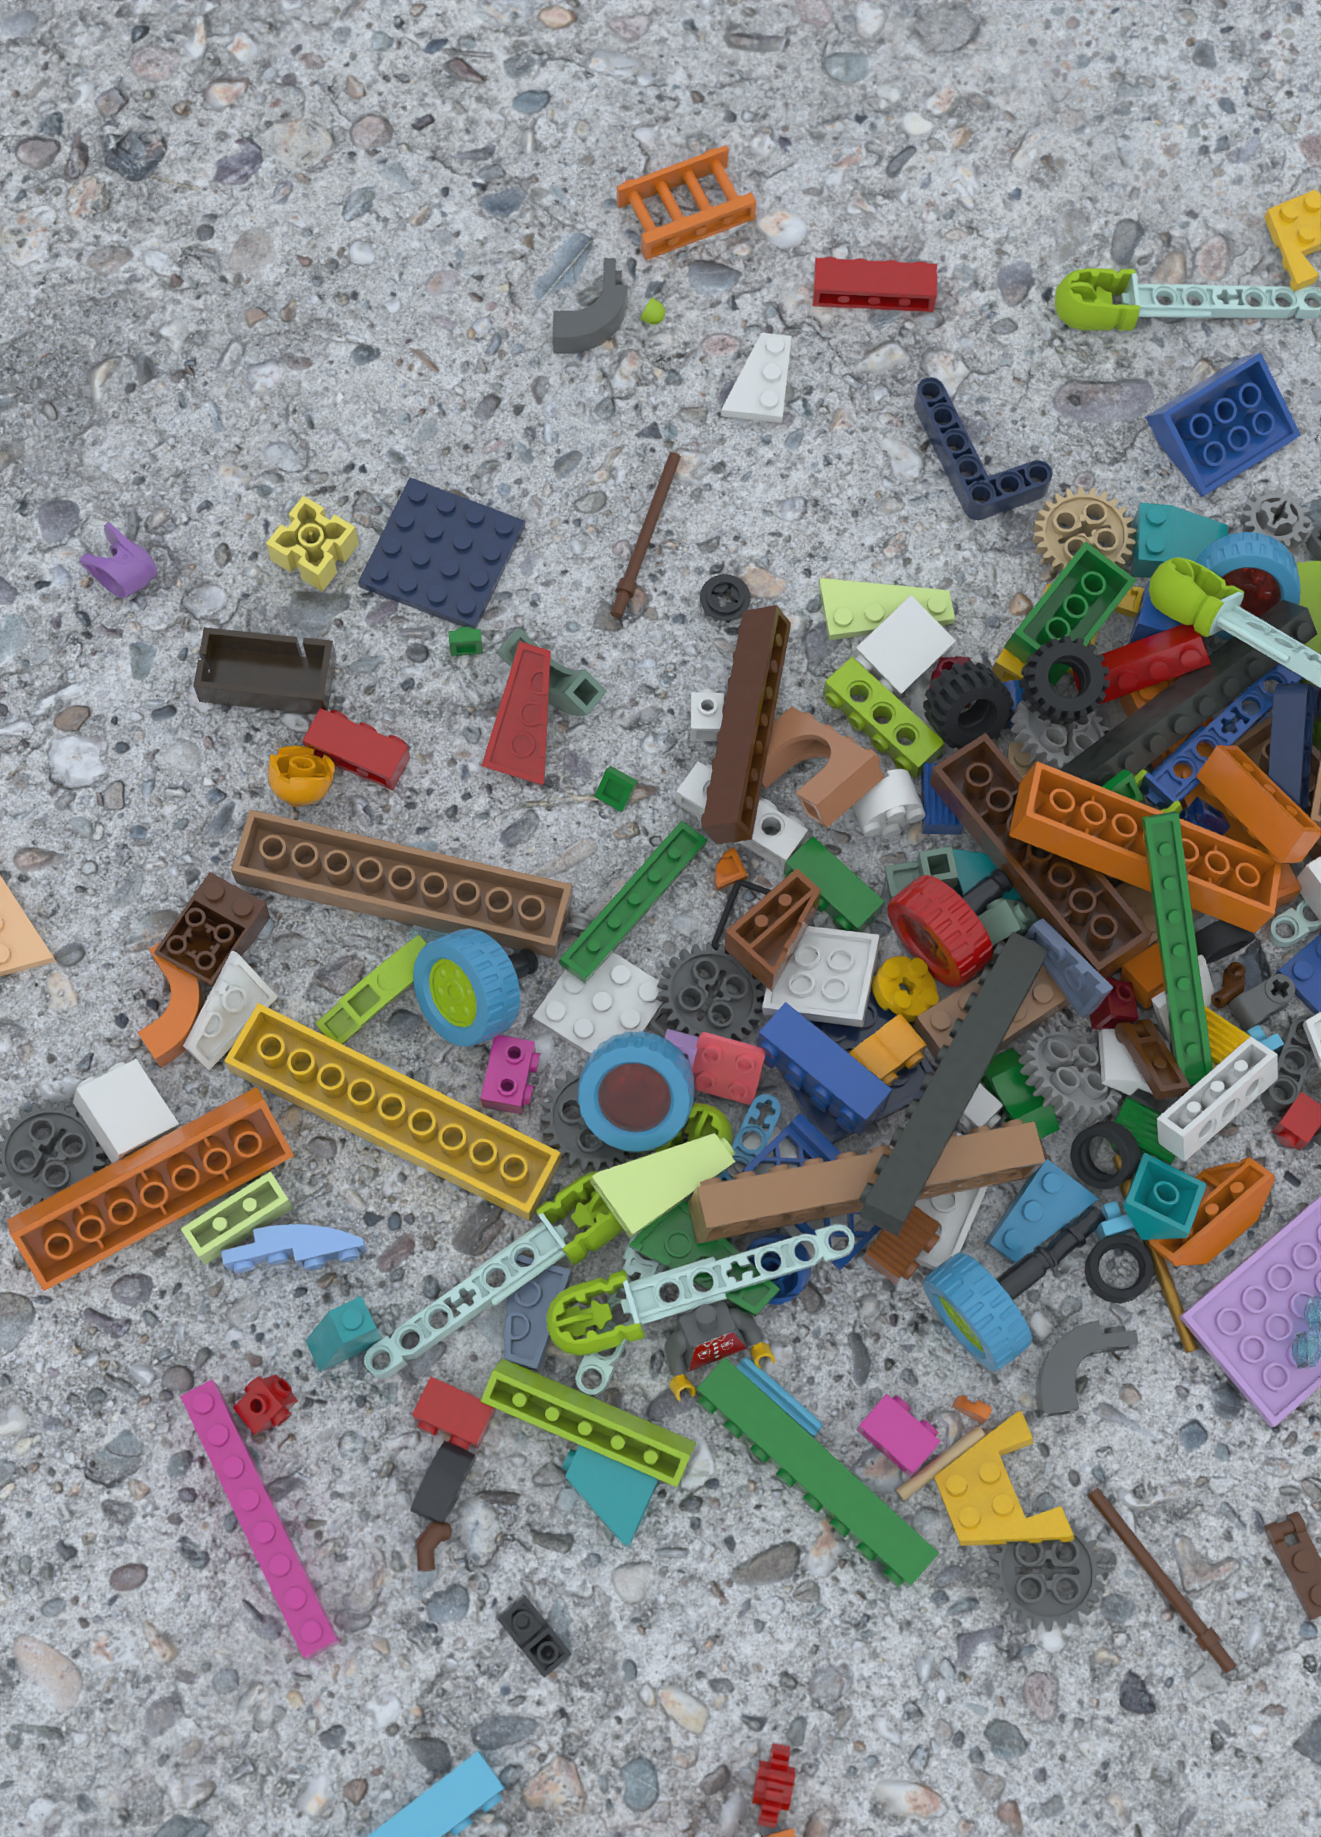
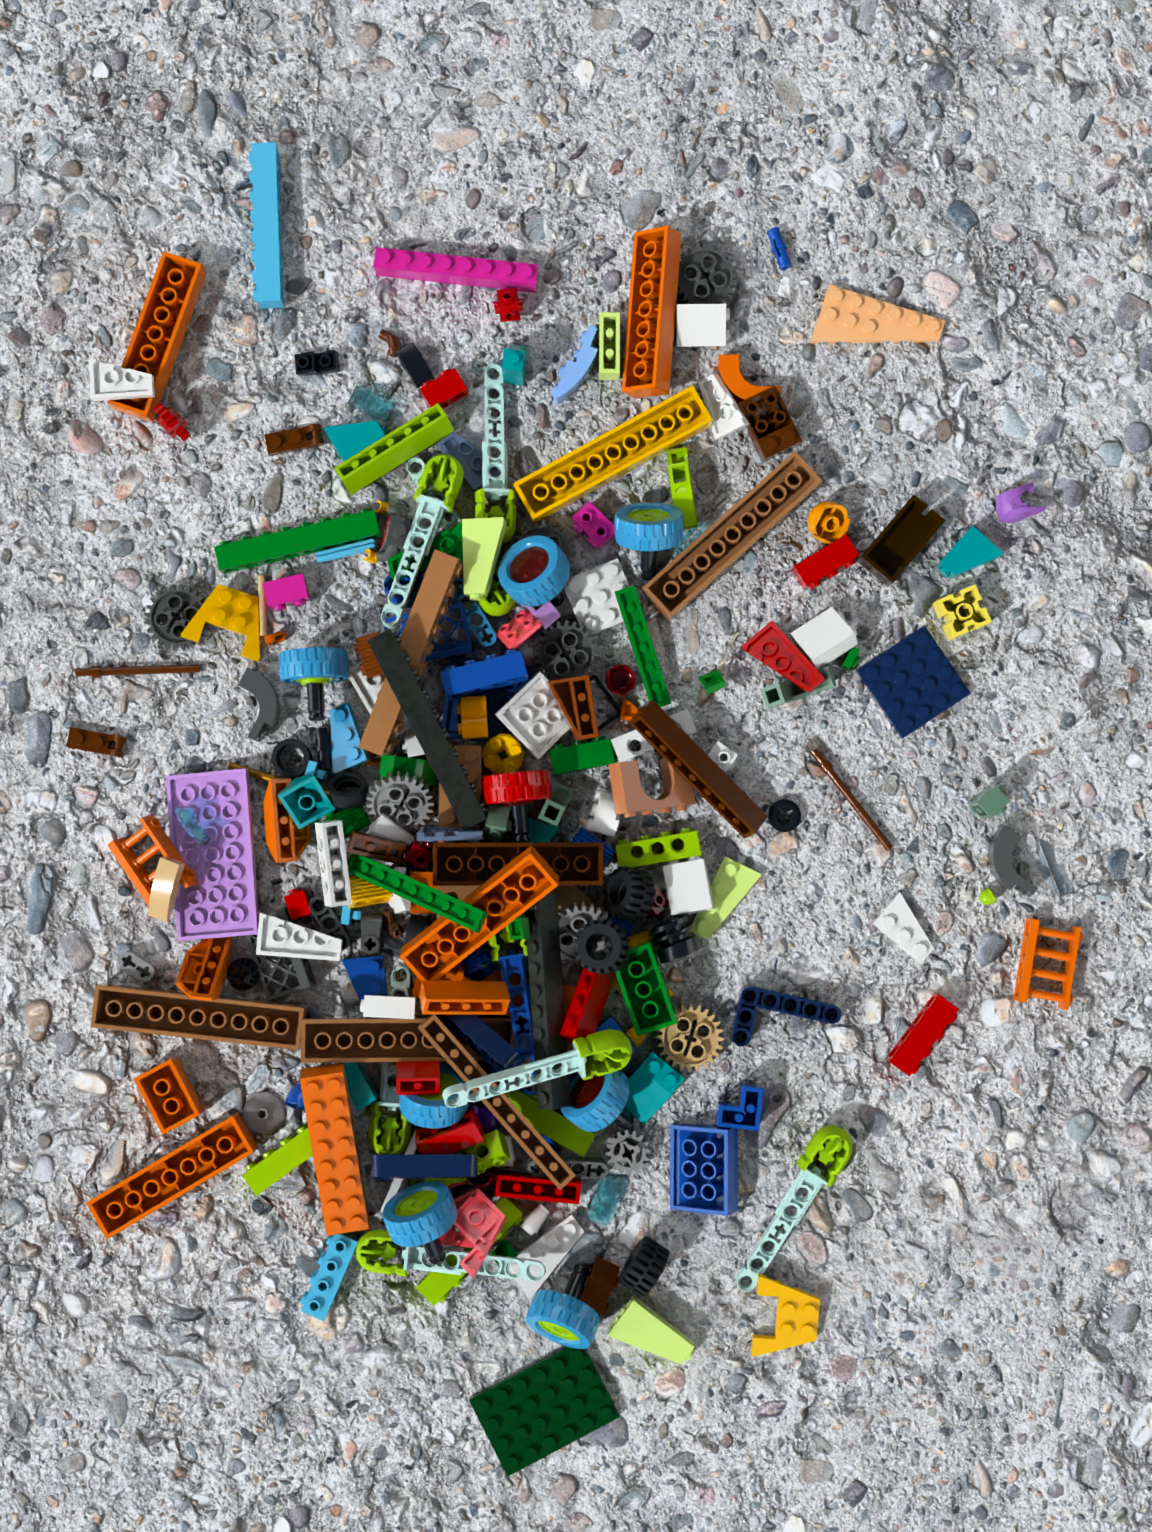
camera: 130 degrees right, 15 degrees up
(227, 585) = (967, 554): none -> teal slope
(461, 683) = (824, 638): none -> white brick
(536, 370) = (989, 802): none -> sand green brick
(541, 1509) = (371, 404): none -> clear light blue slope
(671, 1589) = (293, 440): none -> reddish brown plate
(696, 904) = (620, 679): none -> dark red hair
(982, 621) = (674, 939): none -> black wheel
(1122, 415) = (744, 1114): none -> blue brick

